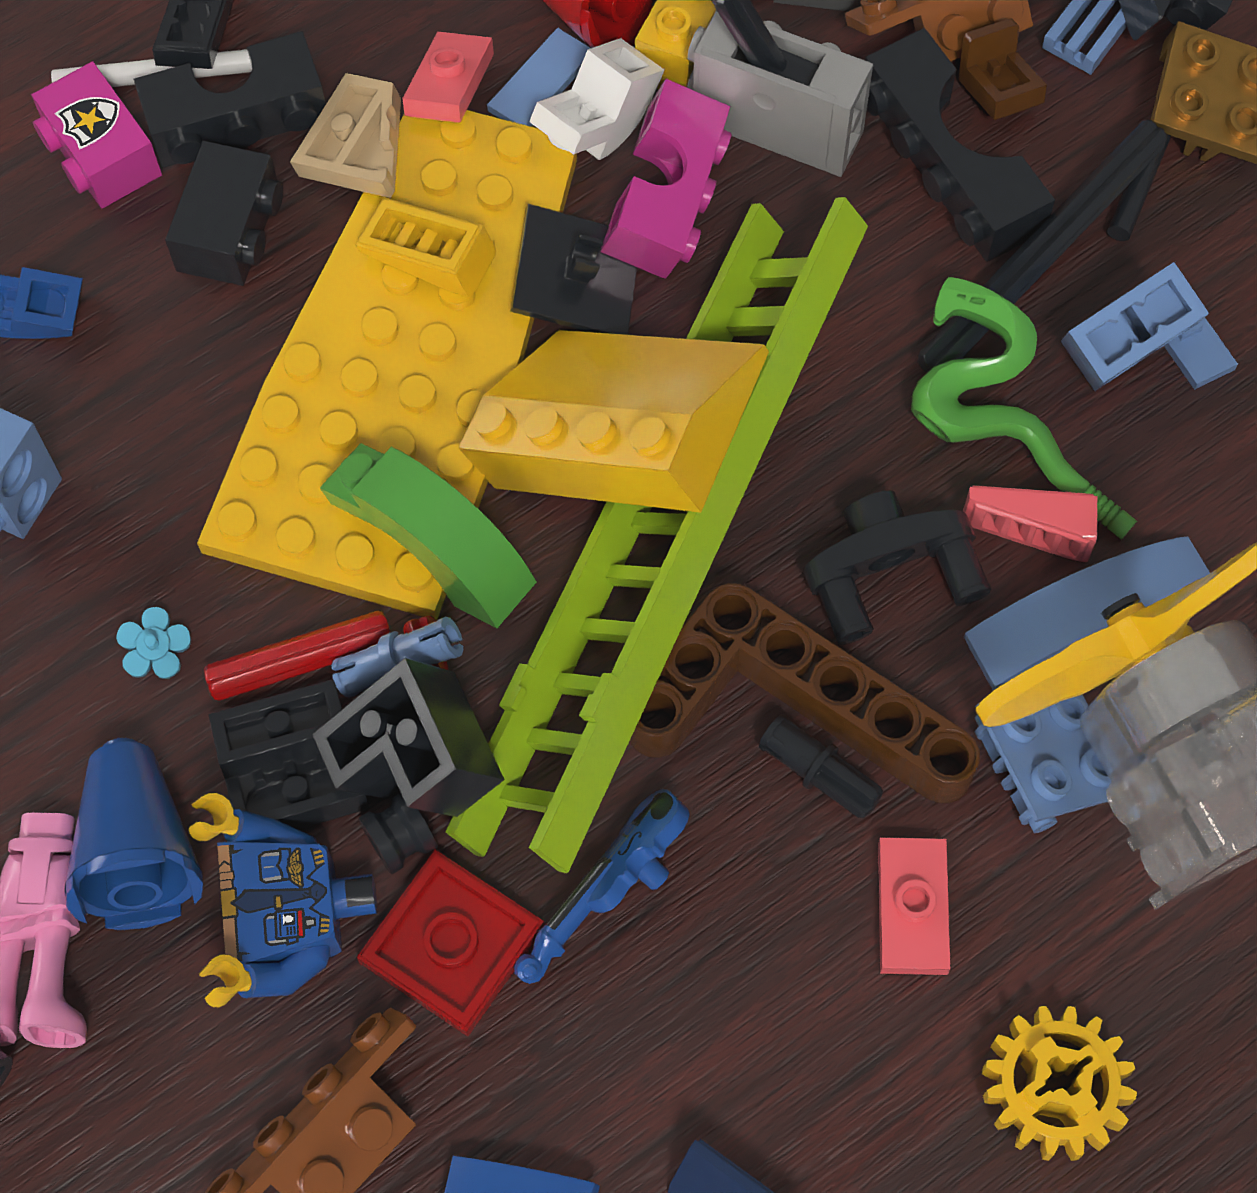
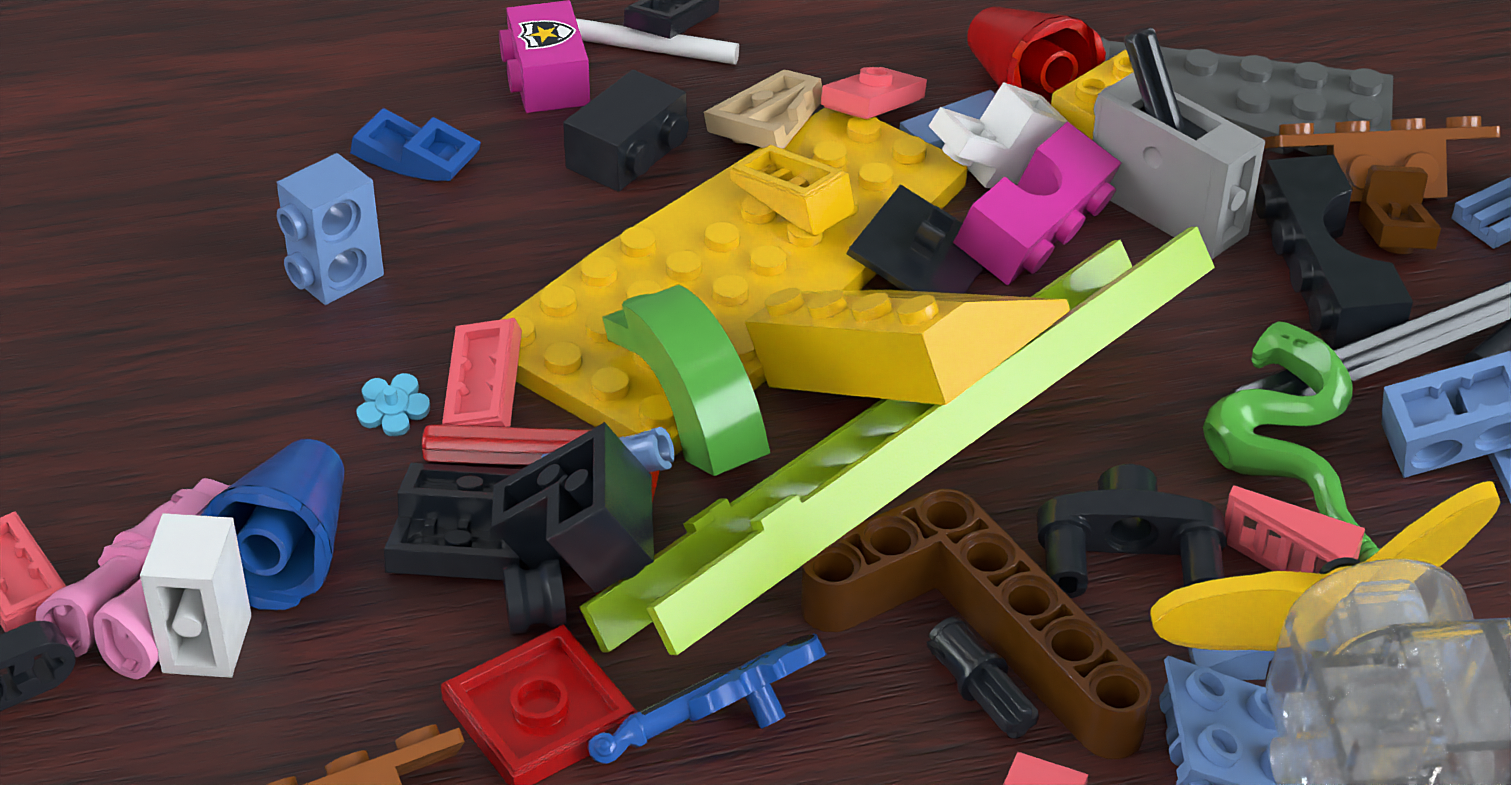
camera: 20 degrees right, 25 degrees down
(100, 964) = (196, 595): none -> white brick
(230, 591) = (483, 374): none -> coral plate
(276, 99) = (707, 69): black arch -> none
(276, 903) = (388, 611): torso -> none

